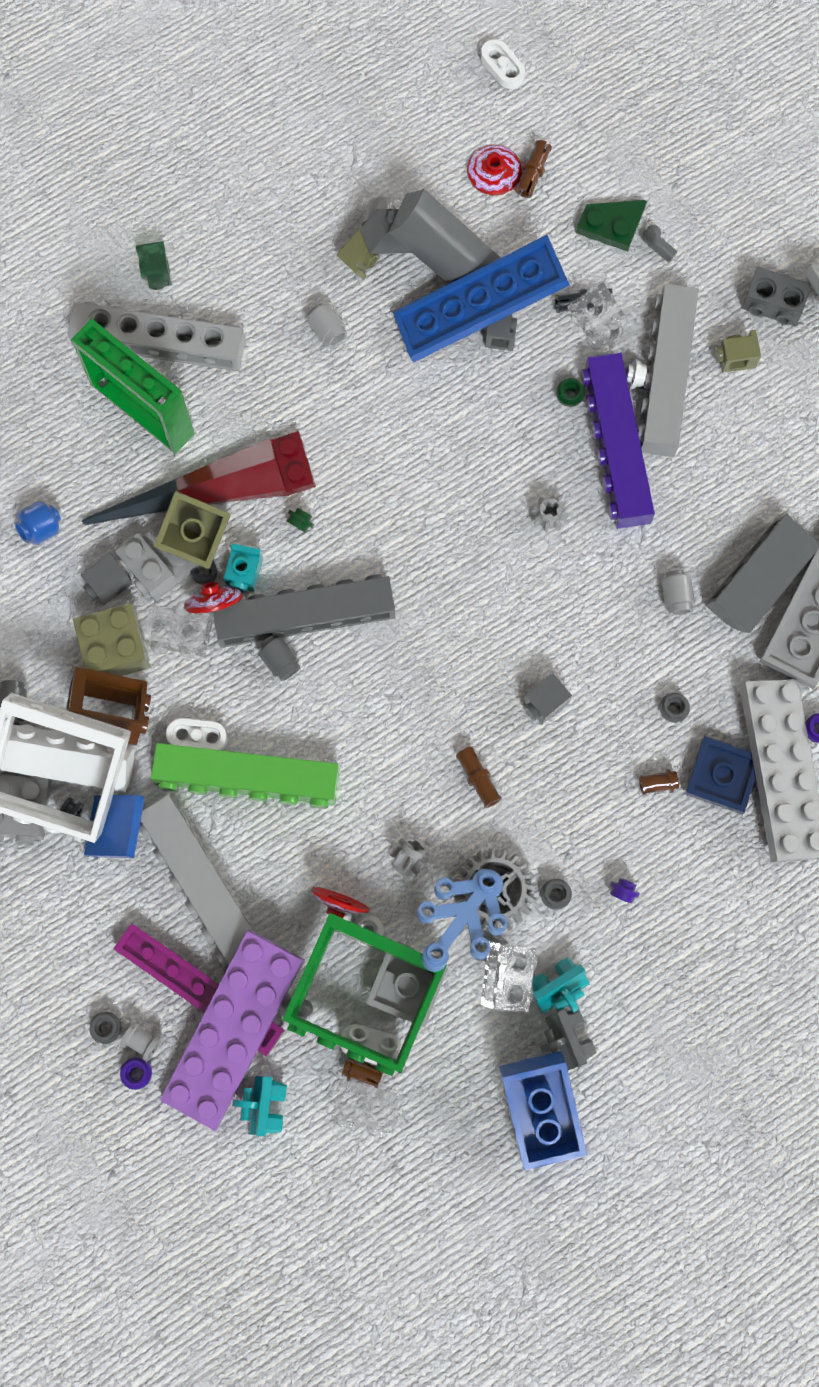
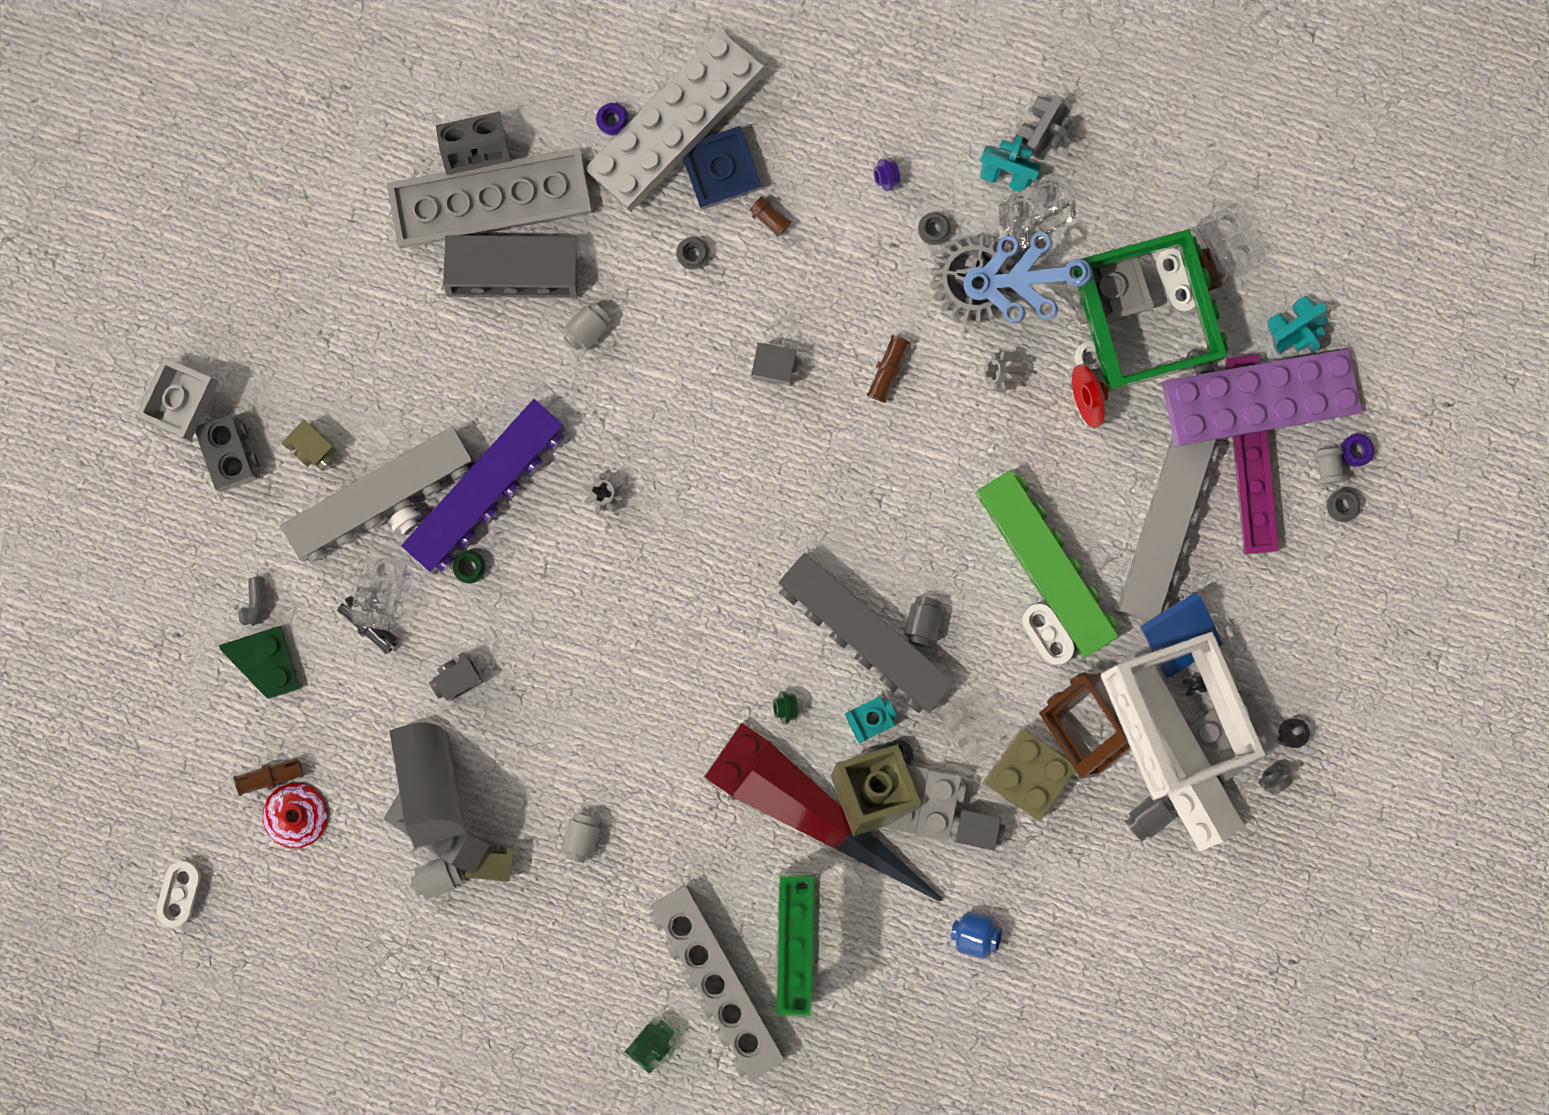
camera: 125 degrees left, 10 degrees up
(212, 598) = (922, 717): red dish -> none
(481, 298) = (451, 710): blue plate -> none
(543, 1110) = (1122, 99): blue brick -> none

